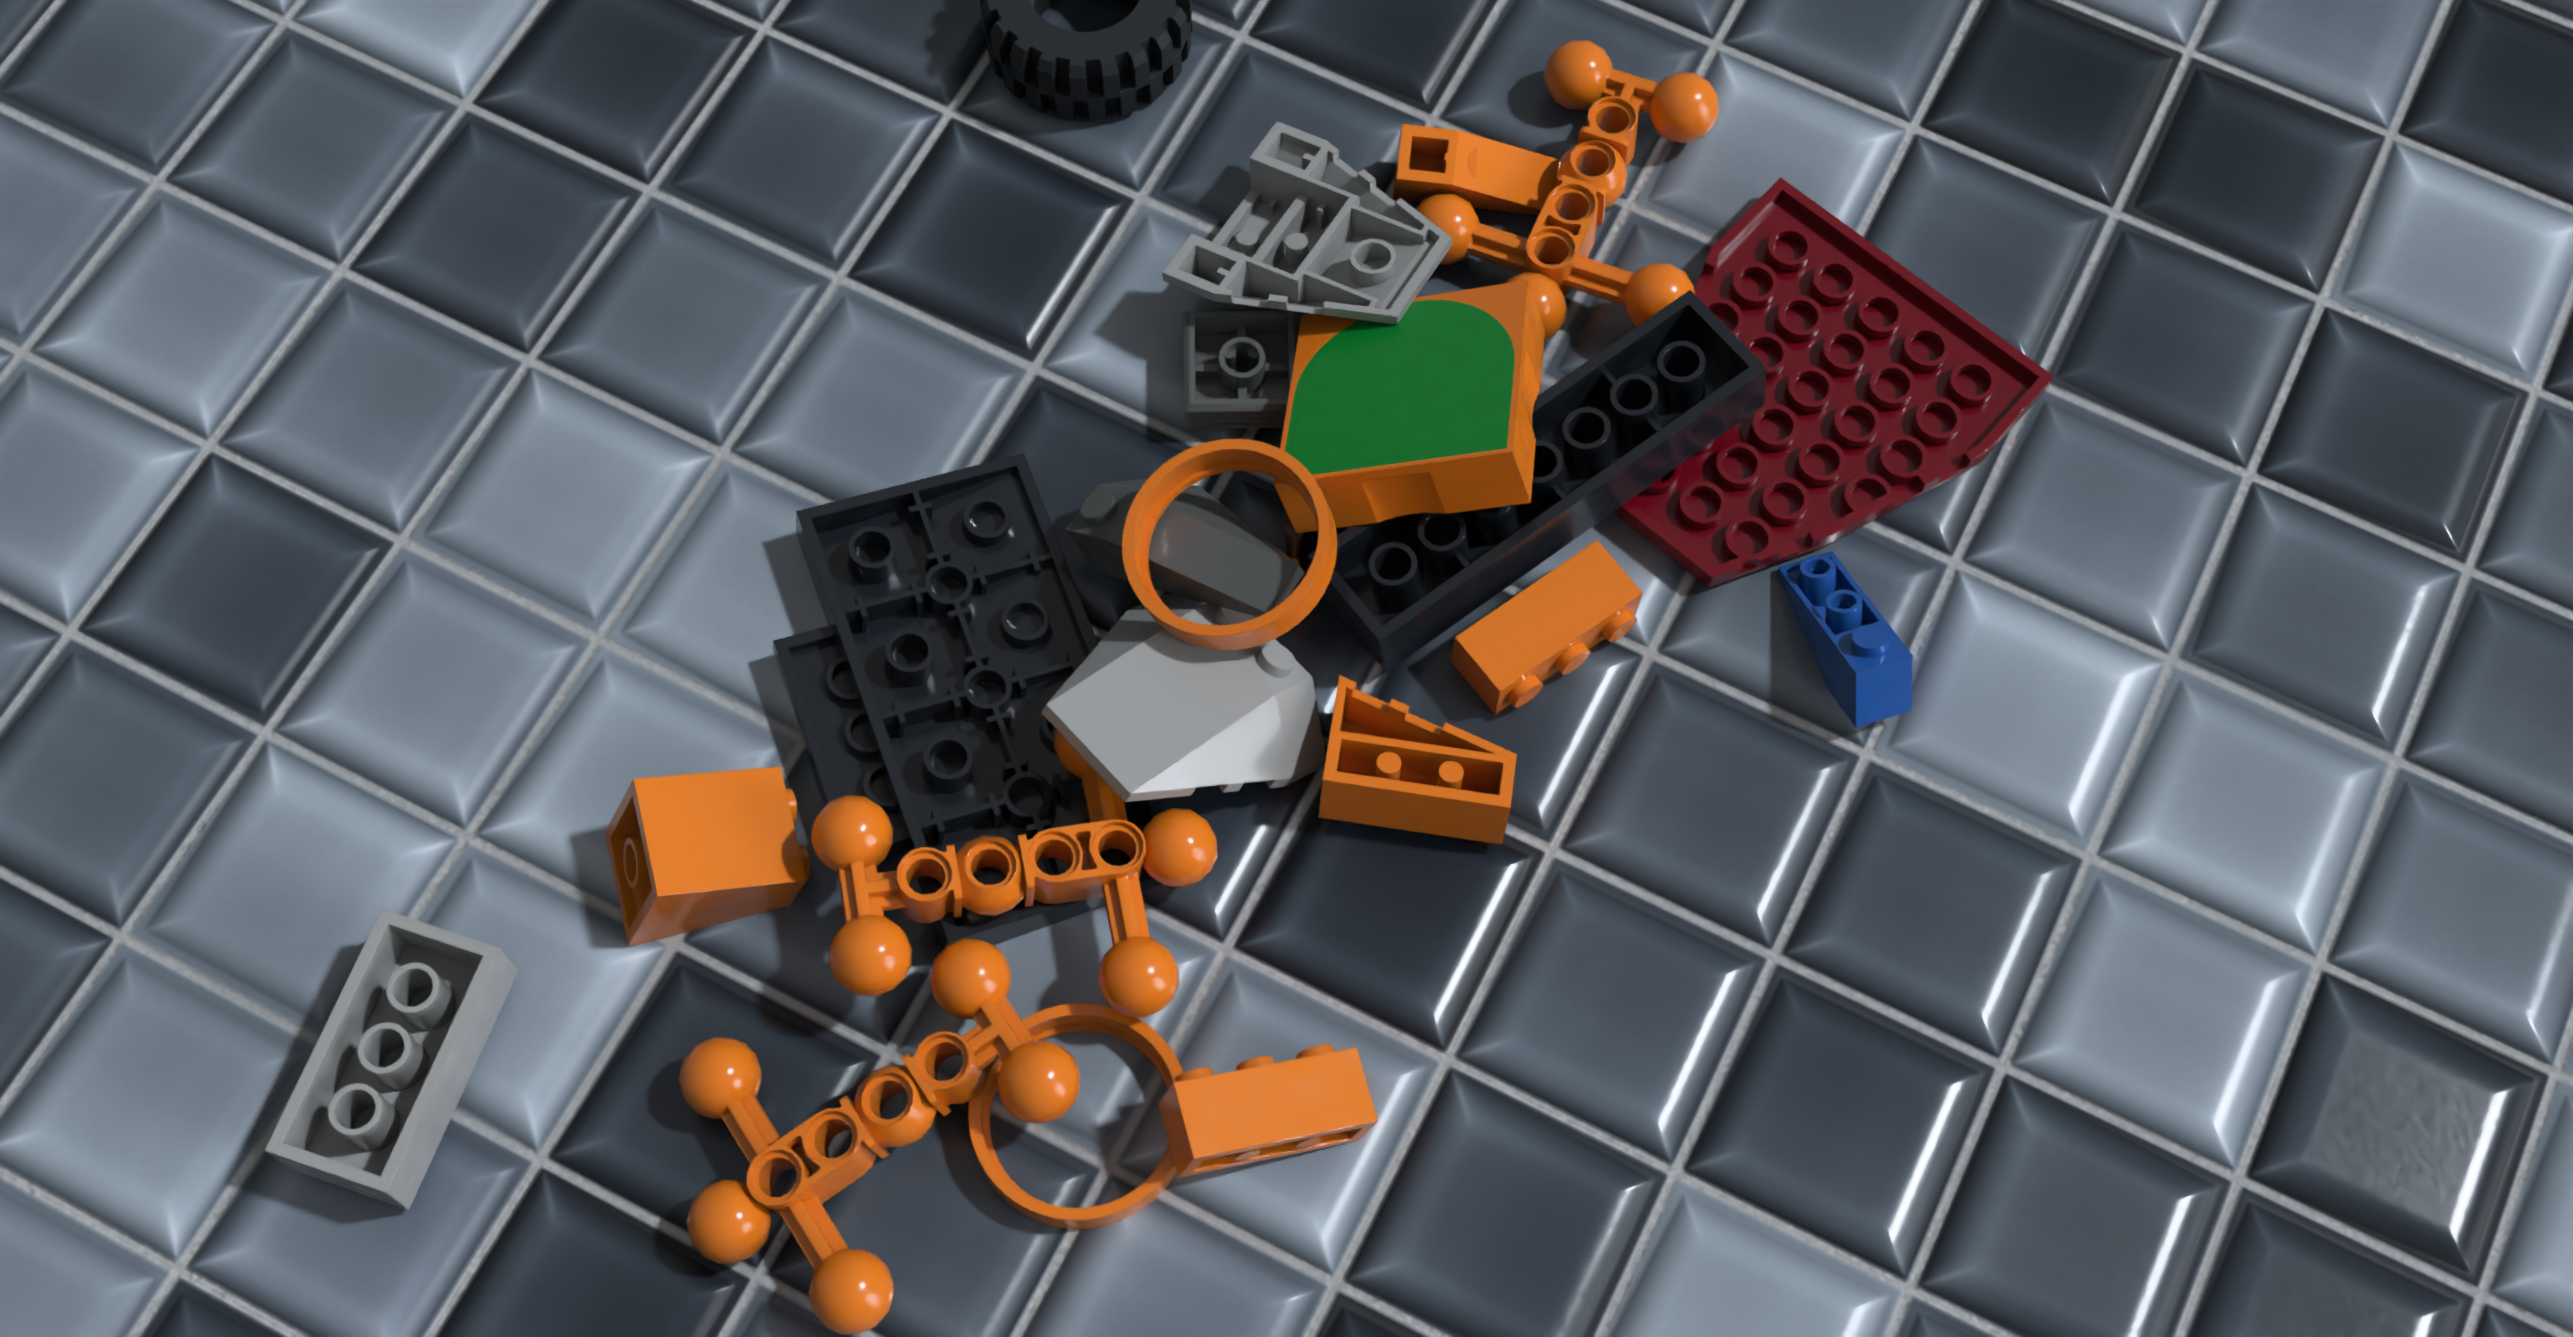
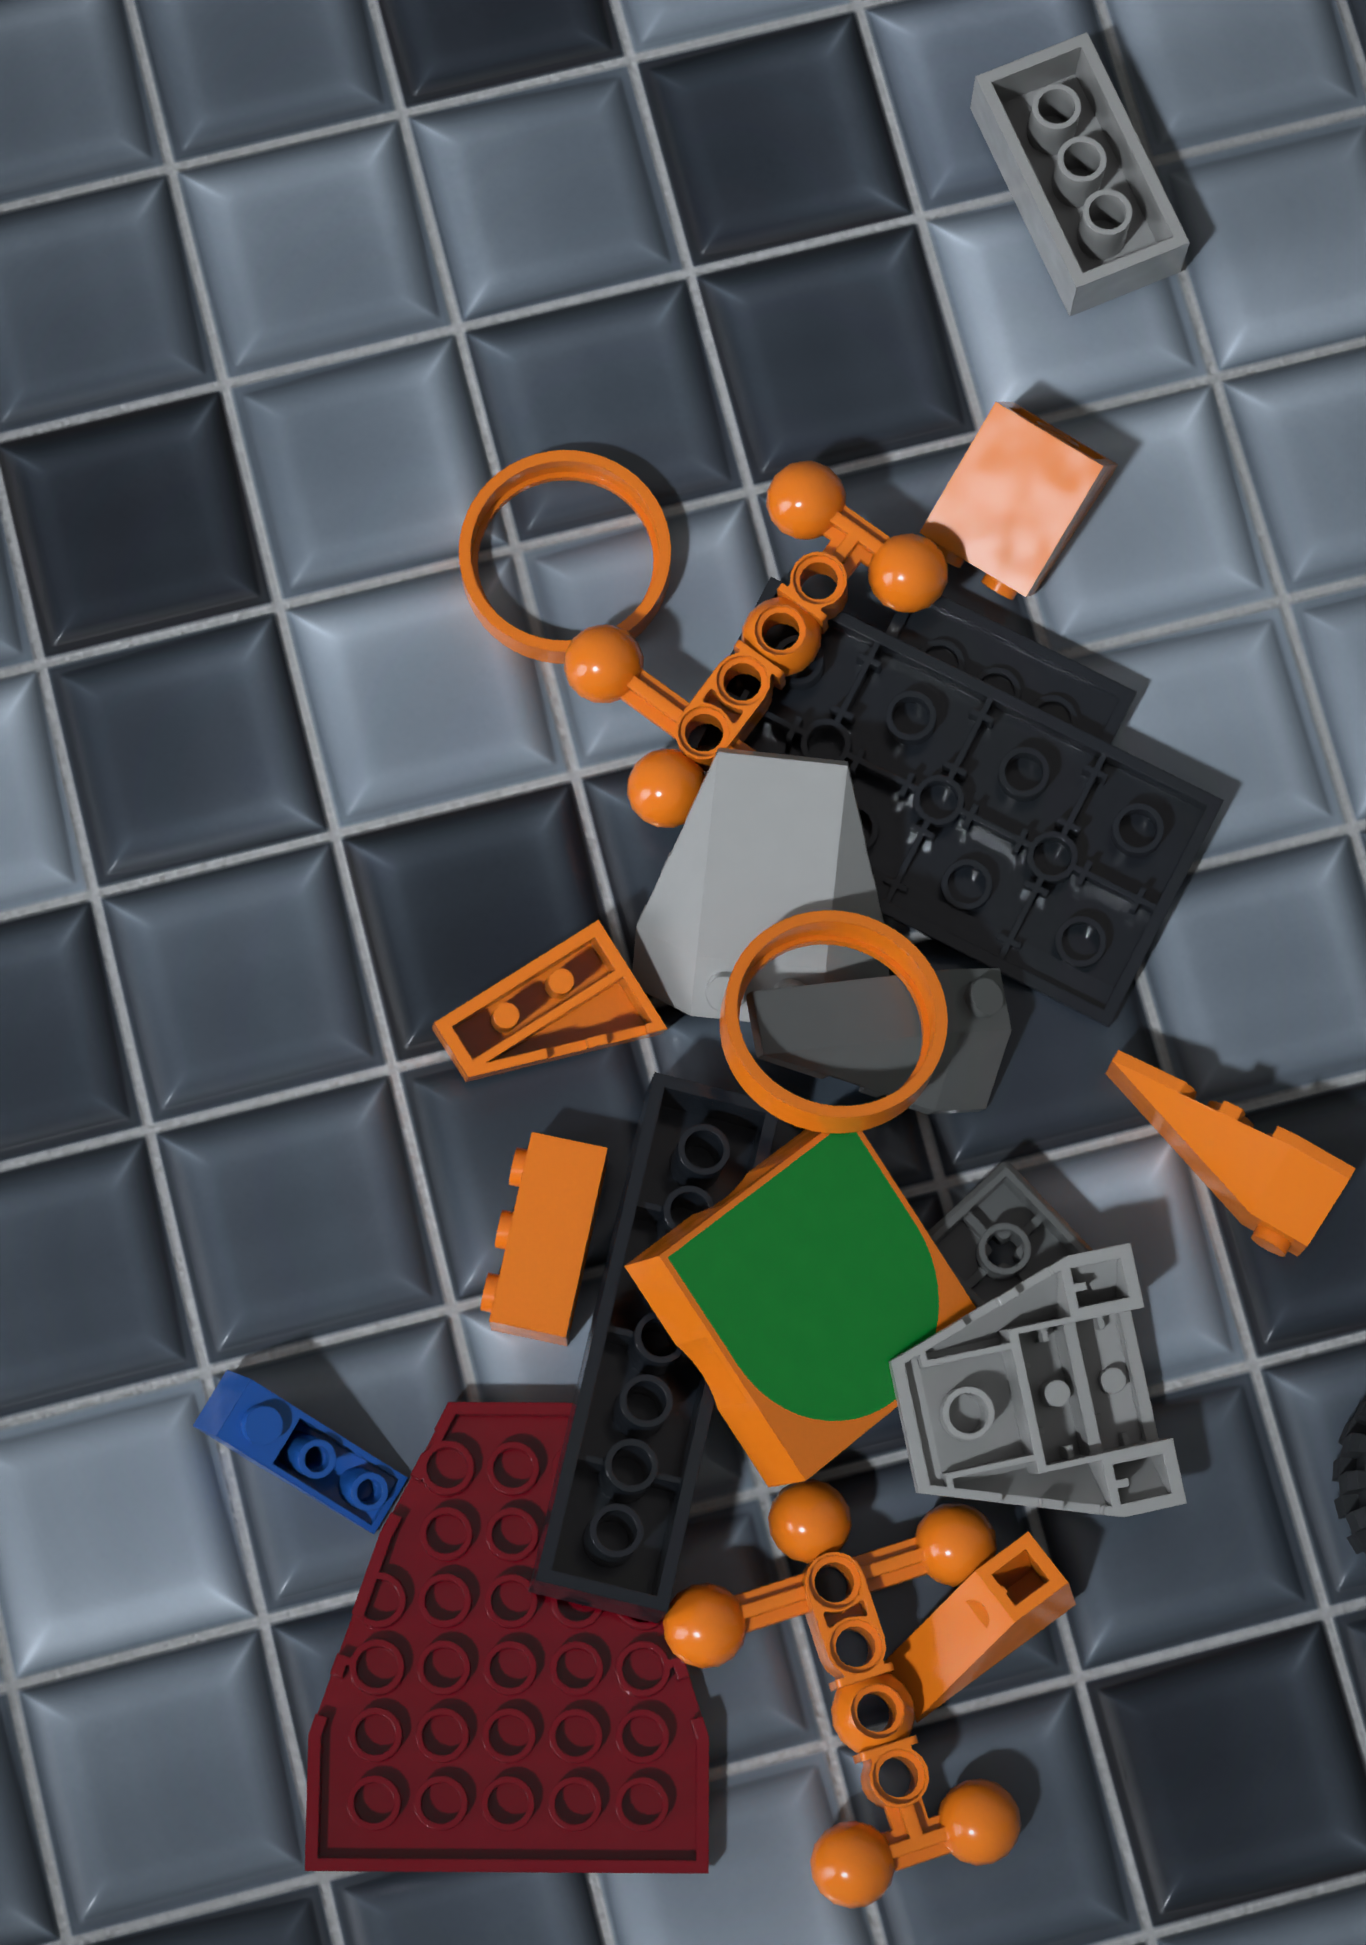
camera: 140 degrees right, 10 degrees up
(723, 1079) = (735, 276): orange piece -> none
(1027, 280) = (1267, 1180): none -> orange wedge
(1266, 1109) = (425, 658): orange brick -> none

